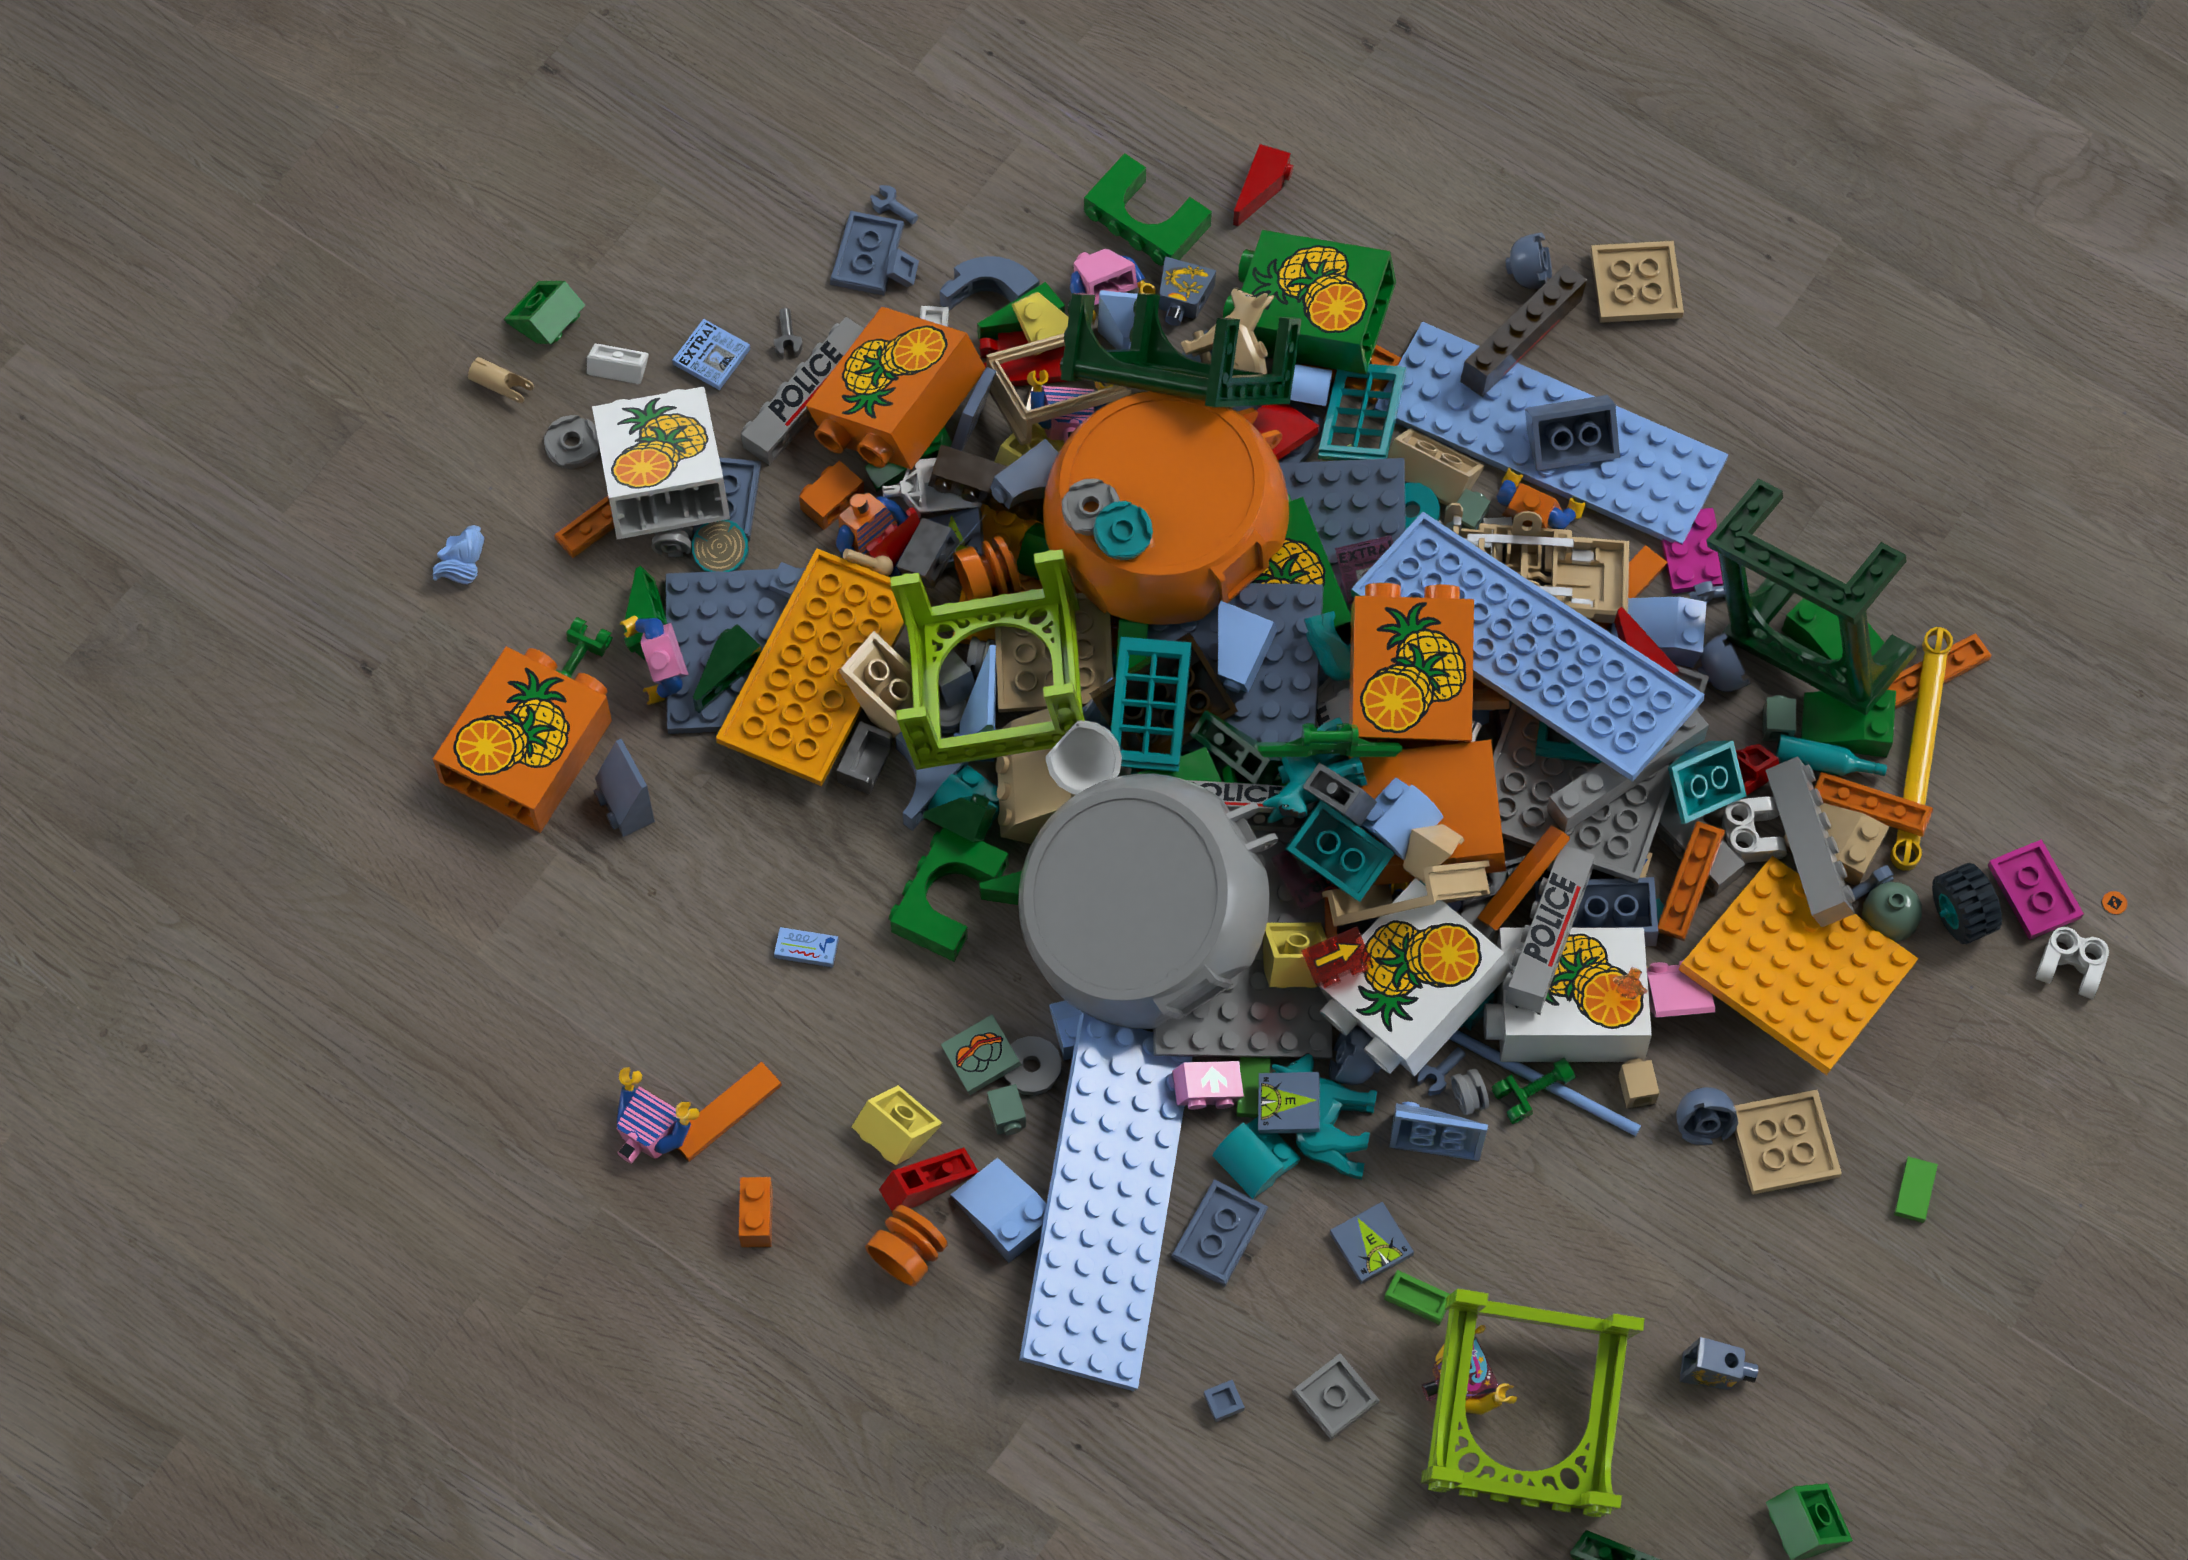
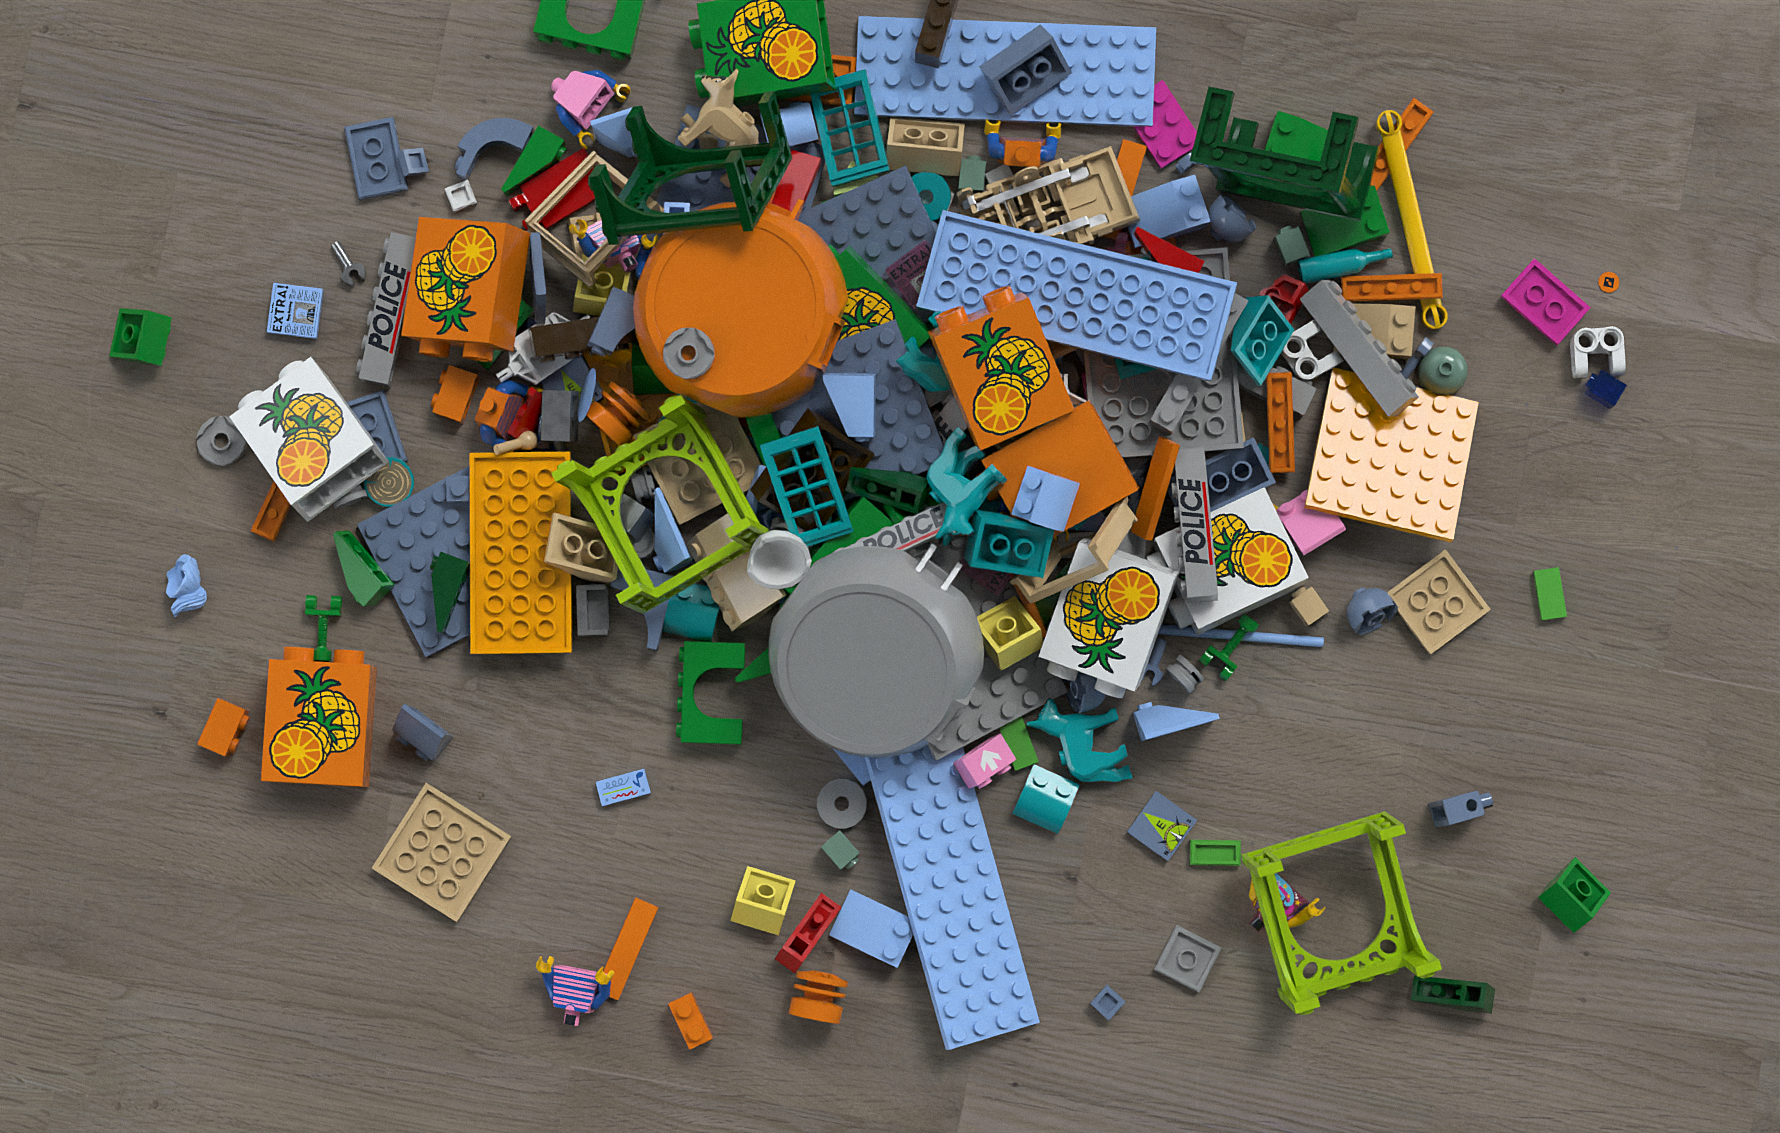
camera: 25 degrees left, 20 degrees up
(423, 705) = (224, 727): none -> orange brick
(498, 379) = (132, 415): tan piece -> none
(581, 926) = (441, 852): none -> tan plate
(616, 363) = (222, 353): white slope -> none
(661, 655) = (391, 605): torso -> none
(891, 204) = (376, 104): sand blue bar -> none
(964, 816) = (696, 632): dark green slope -> none
(981, 1054) = (800, 814): sand green tile -> none
(1039, 318) = (553, 163): light yellow wing -> none
(1122, 530) = (724, 365): teal tile -> none
(1184, 289) = (652, 77): sand blue torso -> none
(1219, 1232) = (1044, 870): sand blue tile -> none
(1289, 1102) = (1053, 750): sand blue tile -> none
(1338, 957) = (1047, 634): clear red brick -> none
(1340, 794) = (993, 505): flat silver slope -> none
(1342, 741) = (976, 458): green piece -> none
(1429, 848) = (1083, 516): tan slope -> none
(1630, 985) = (1276, 545): clear orange plant -> none
(1967, 903) = (1500, 345): black wheel -> none
(2066, 1003) = (1604, 388): none -> clear blue brick

